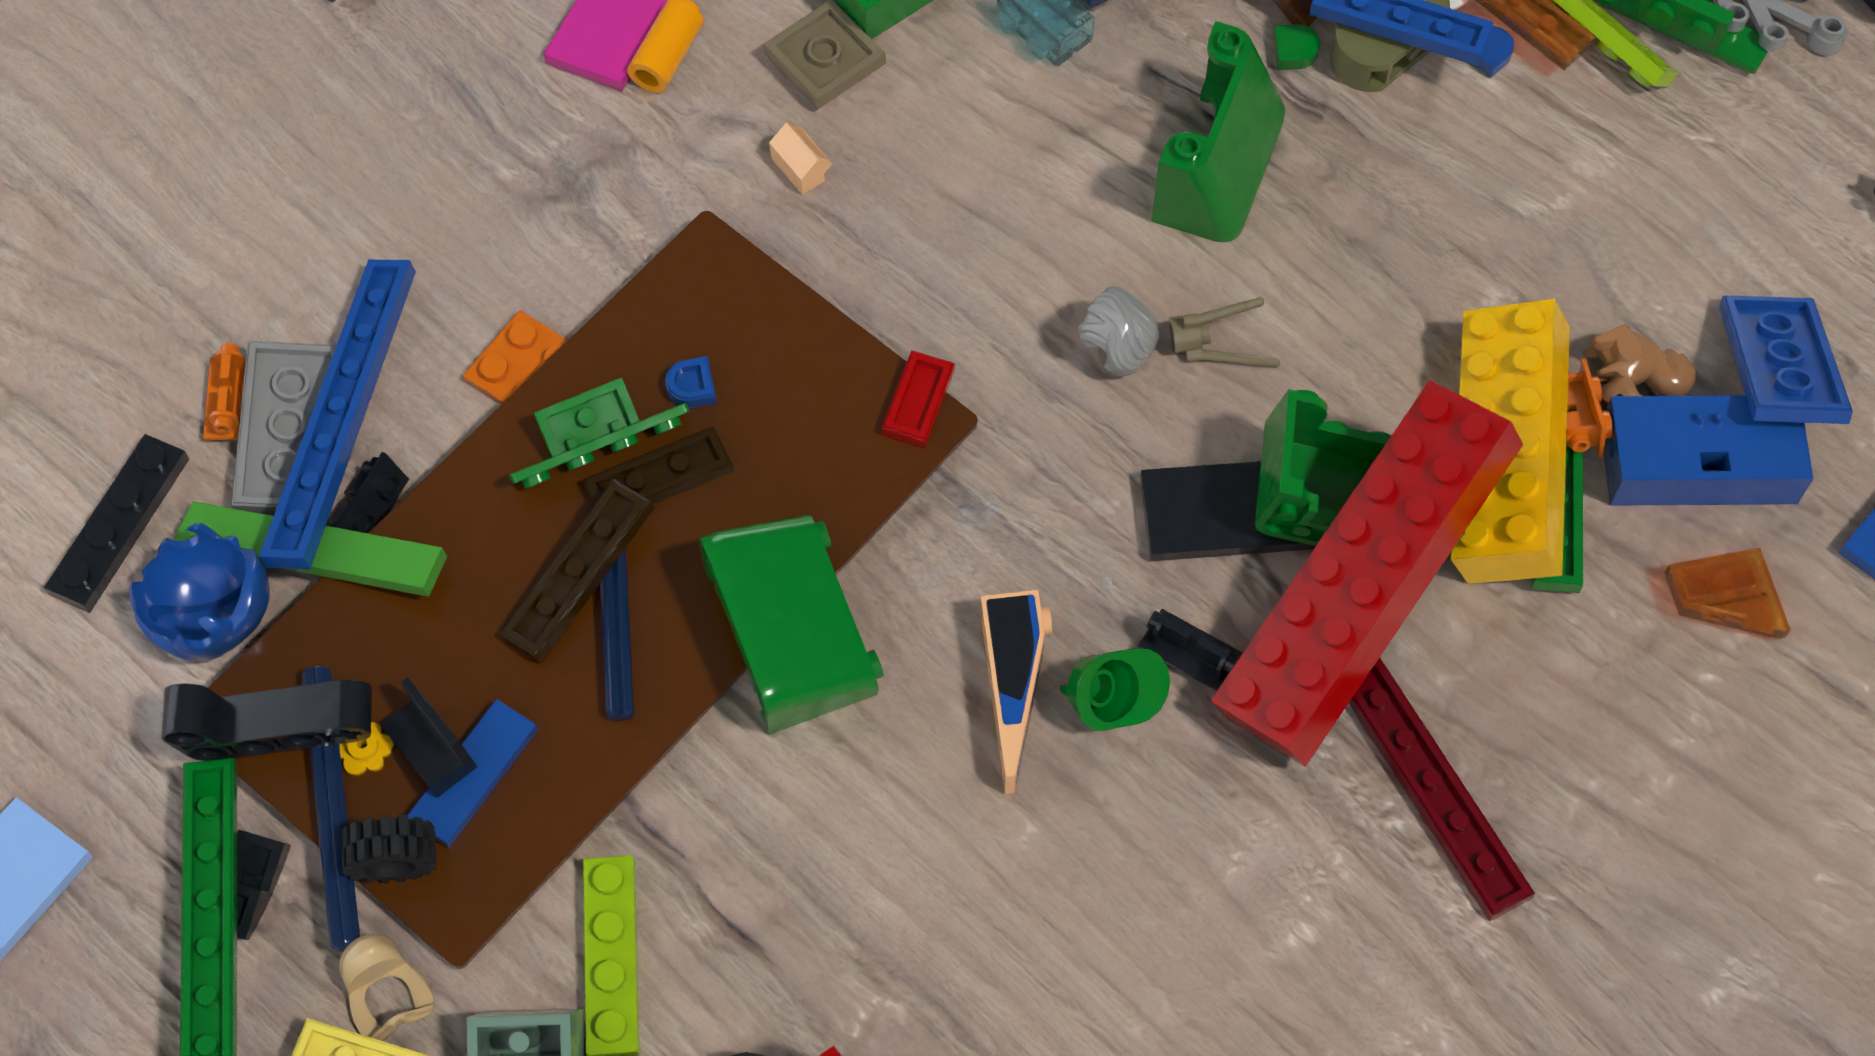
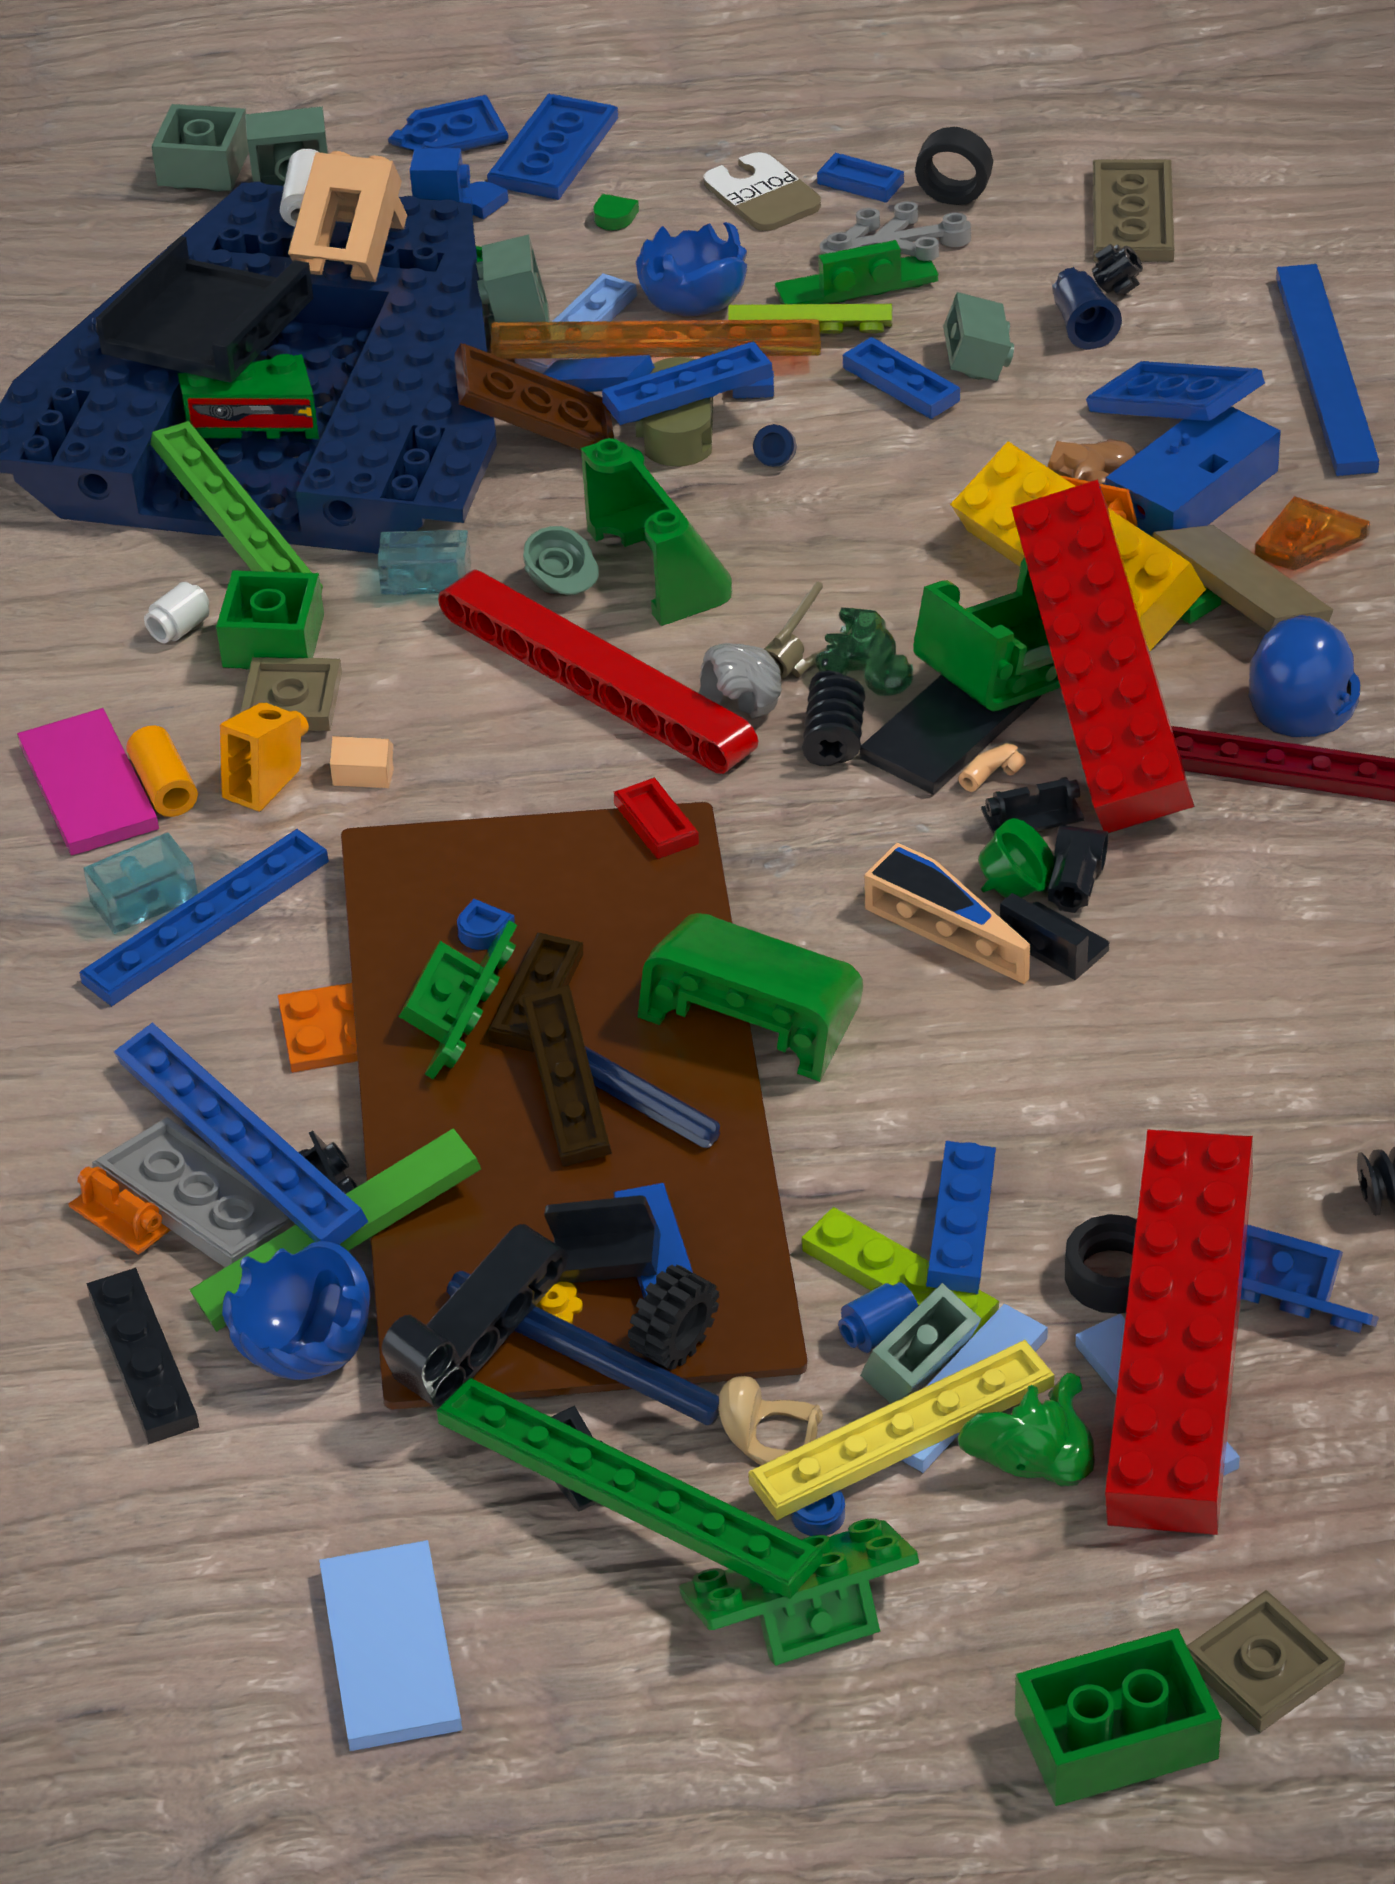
camera: 45 degrees left, 20 degrees down
(543, 132) = (140, 882): none -> clear light blue brick
(544, 979) = (875, 1315): none -> blue brick
(560, 196) = (203, 917): none -> blue tile
(695, 956) = (961, 1217): none -> blue plate
(736, 90) = (260, 753): none -> light orange torso
(1044, 229) = (599, 671): none -> red beam
(1070, 776) = (1053, 936): none -> black panel
(1130, 101) = (560, 561): none -> sand green hat
(1145, 427) = (833, 718): none -> black piece
(1167, 725) = (1077, 860): none -> black piece
(1218, 573) = (986, 763): none -> light nougat arm
(1252, 385) = (866, 647): none -> clear green animal
(1421, 129) = (774, 446): none -> dark blue tile
(1531, 730) = (1303, 678): none -> blue piece
(1600, 147) = (901, 377): none -> blue plate
(1615, 587) = (1242, 576): none -> dark tan tile
(1700, 161) = (977, 337): none -> sand green brick
(1825, 209) = (1087, 312): none -> dark blue plant

